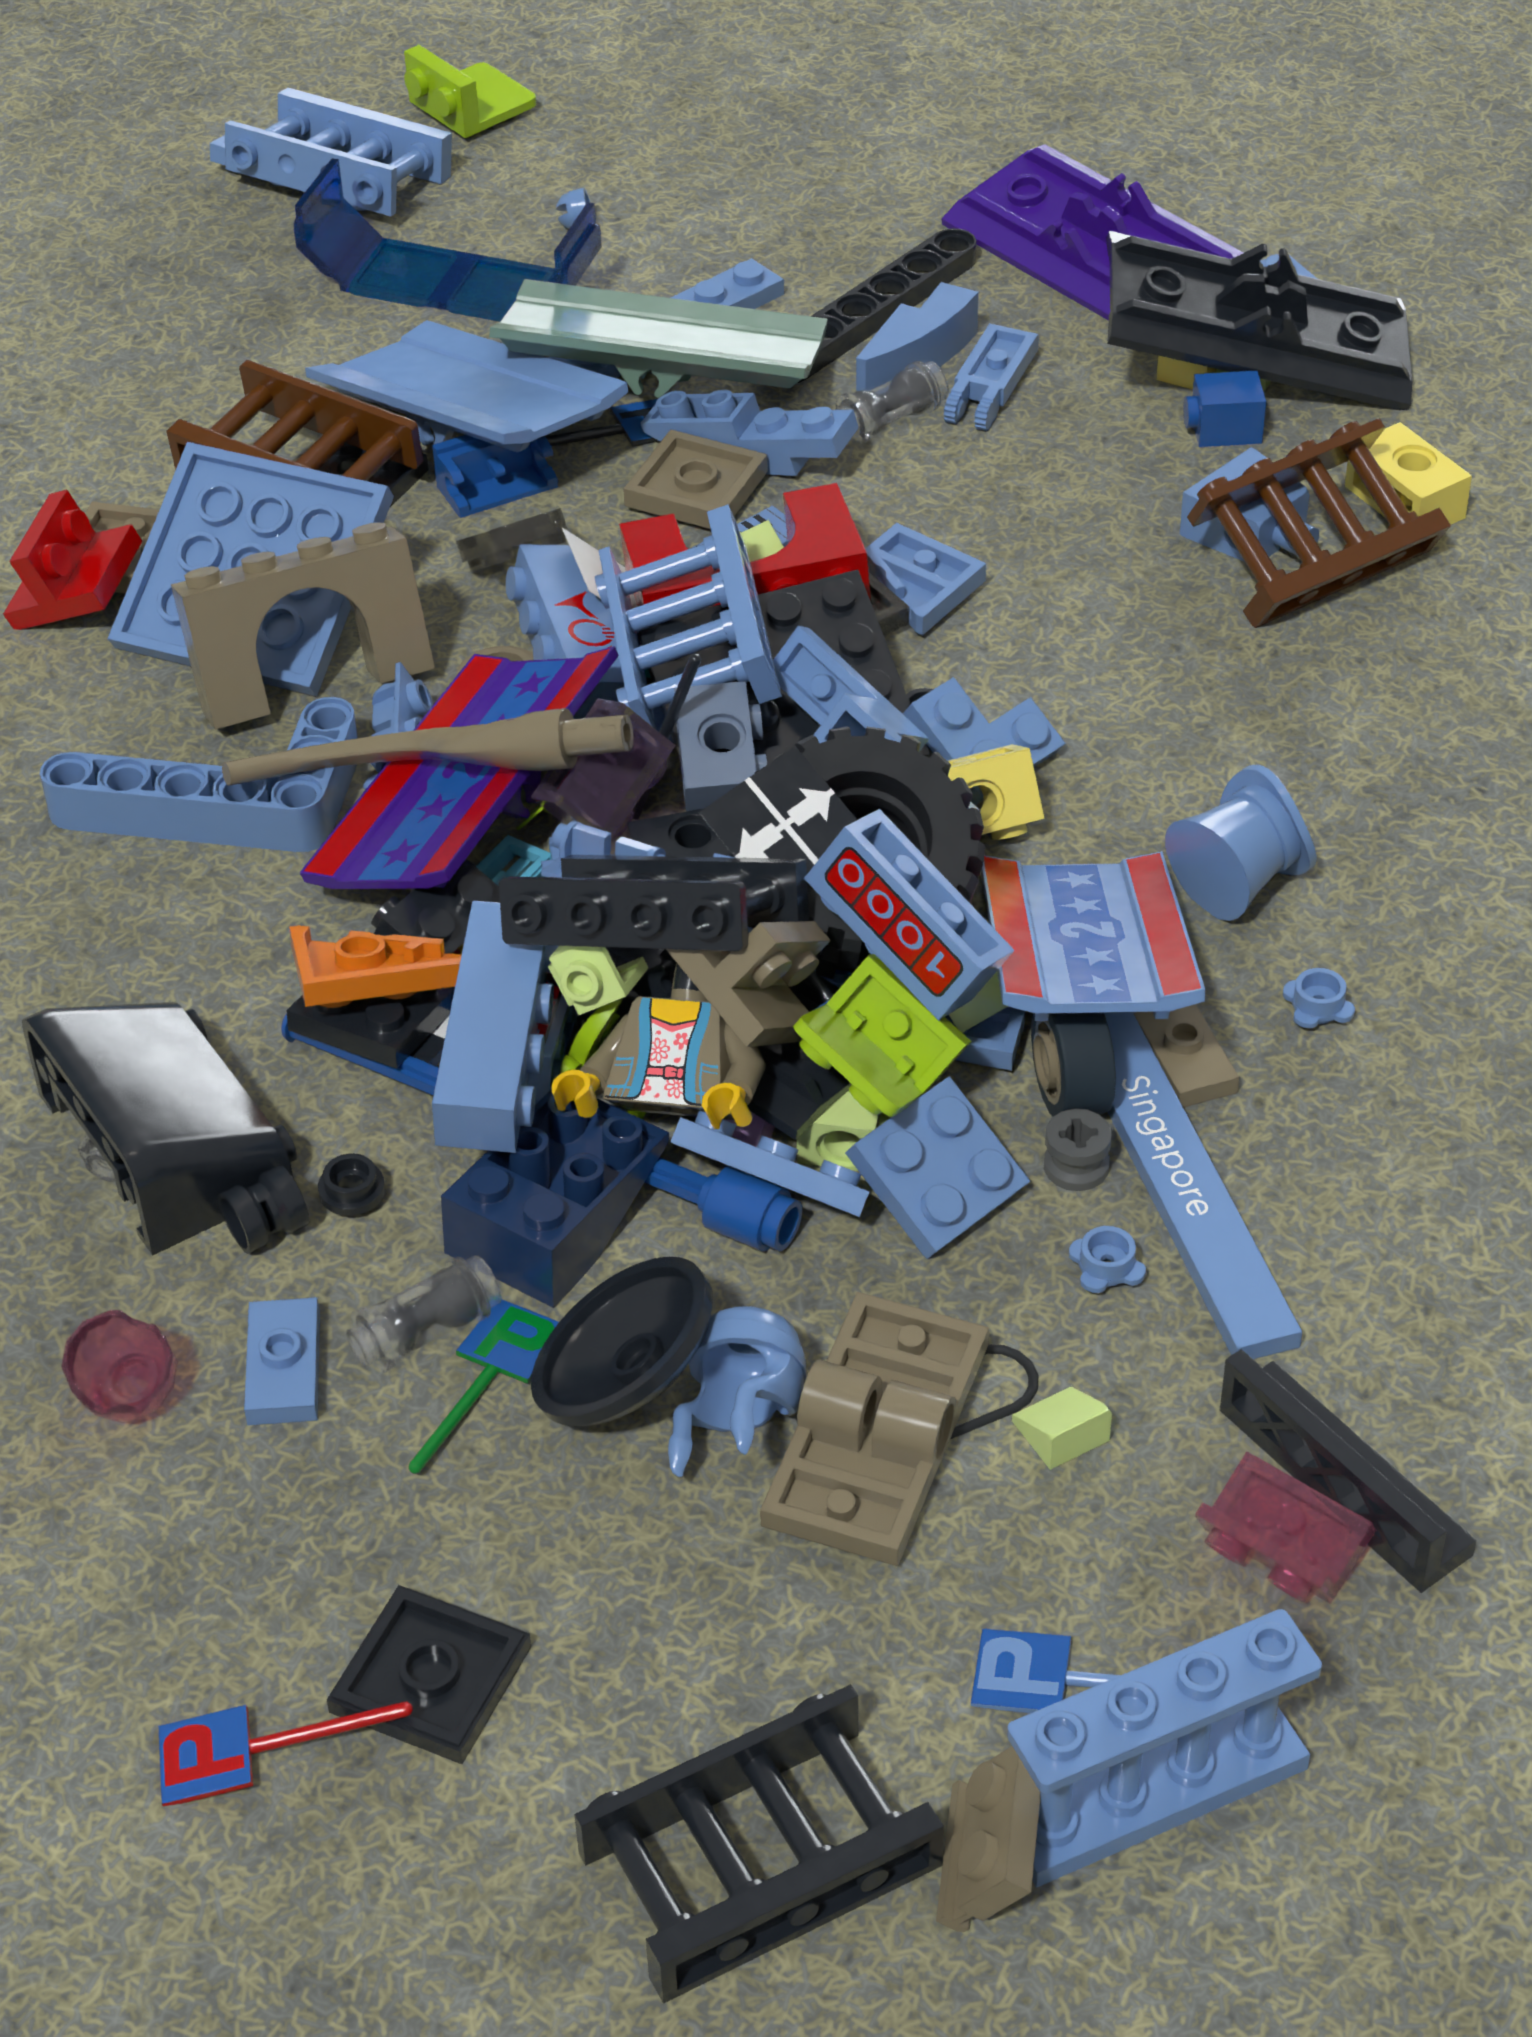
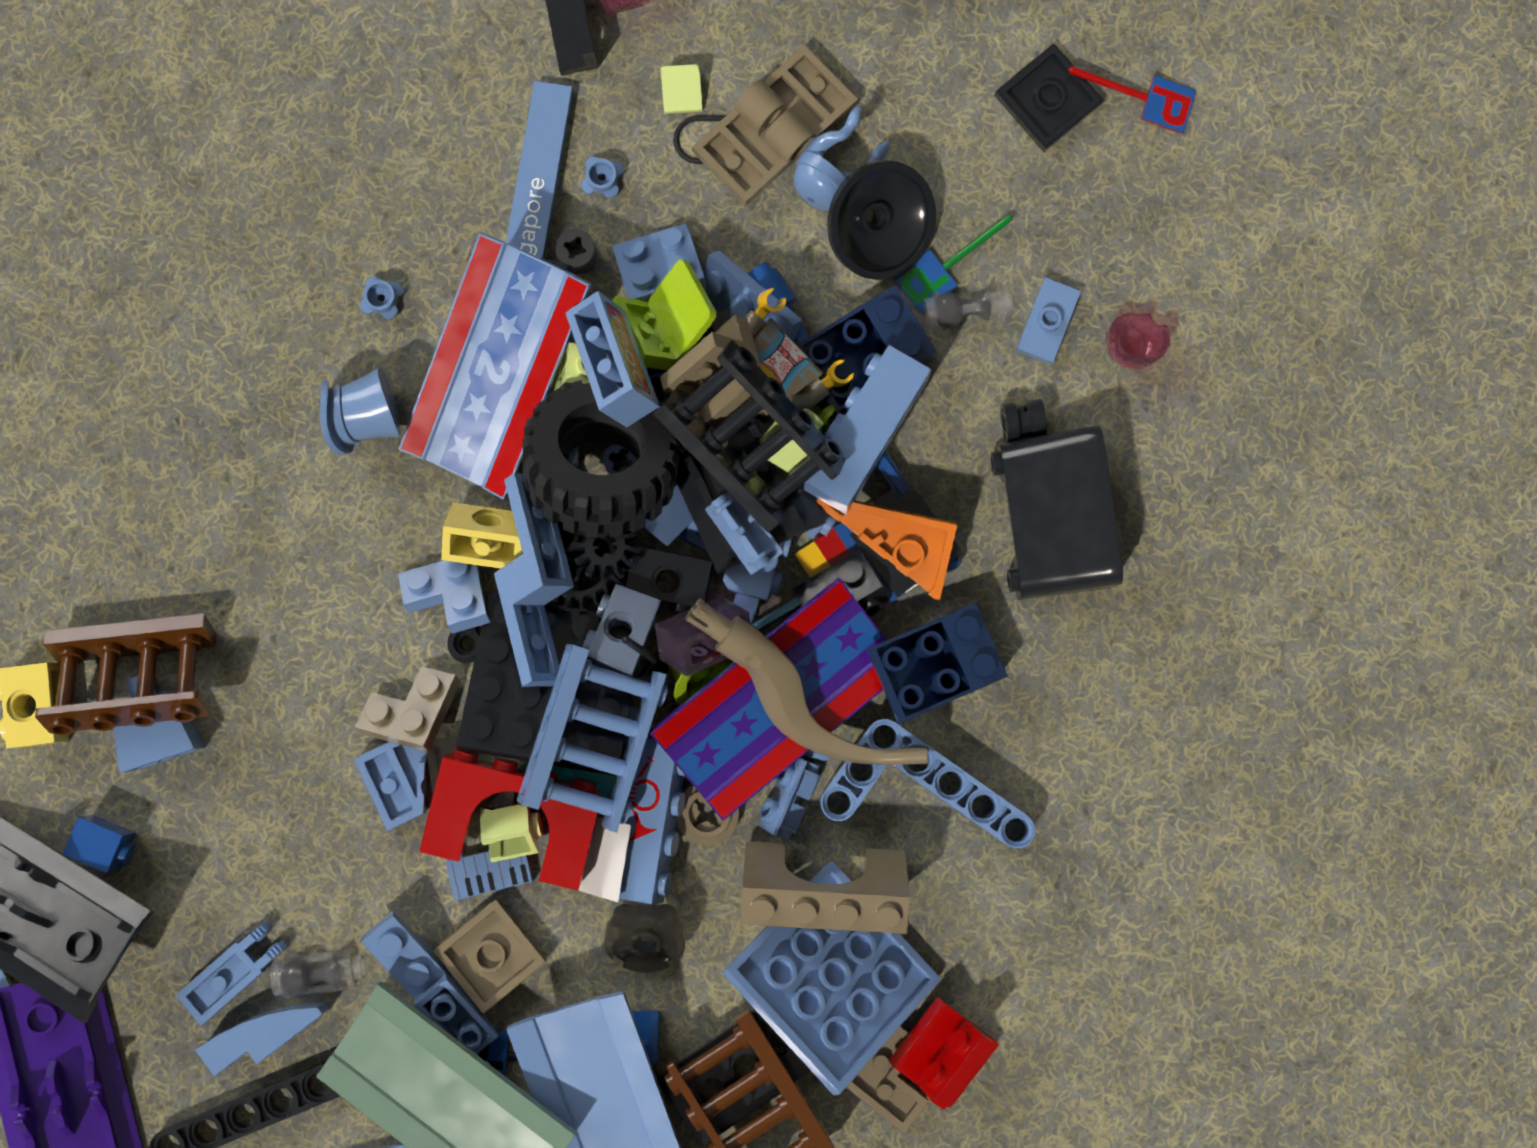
camera: 155 degrees left, 40 degrees up
(256, 881) = (936, 663): none -> dark blue slope
(351, 1185) = (973, 411): black plate -> none
(780, 812) = (646, 460): black sticker -> none
(939, 614) = (415, 719): none -> plate

